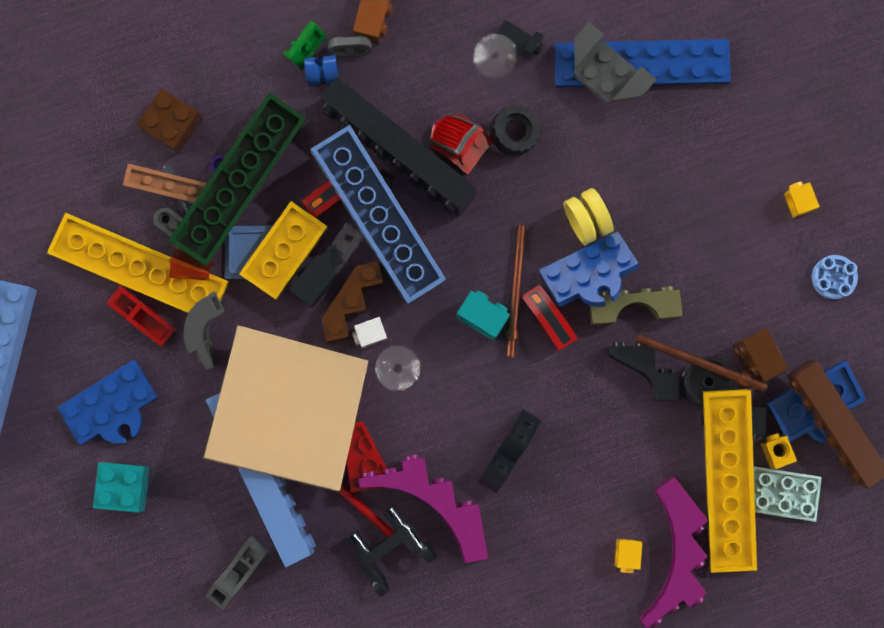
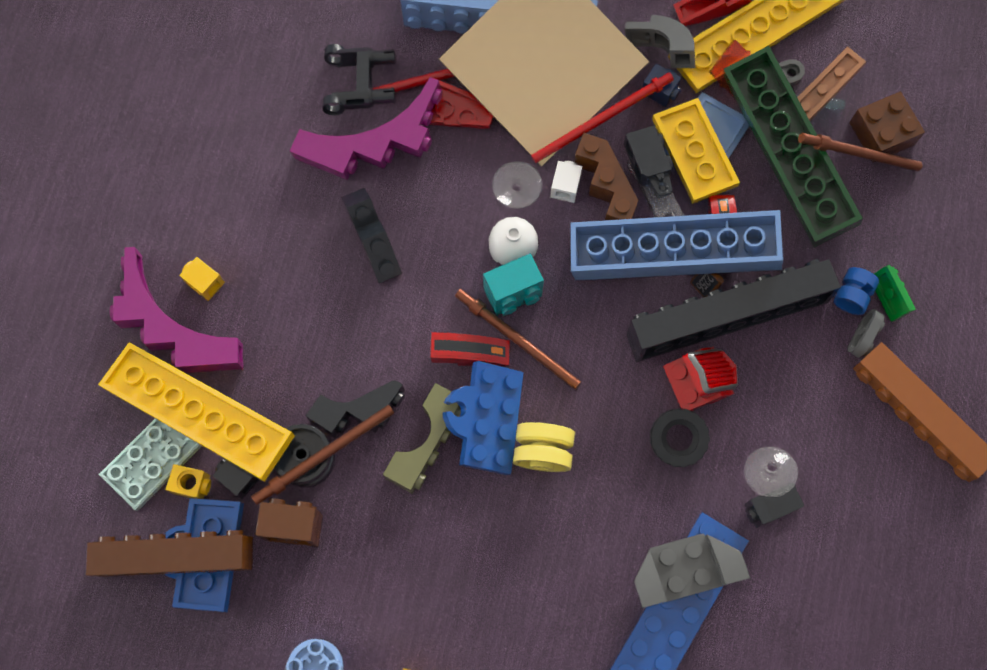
camera: 125 degrees right, 10 degrees down
(228, 150) = (824, 143): none -> copper bar
(241, 310) = (670, 91): none -> dark blue brick
(250, 310) = (655, 86): none -> red bar
(444, 342) = (512, 240): none -> white cylinder

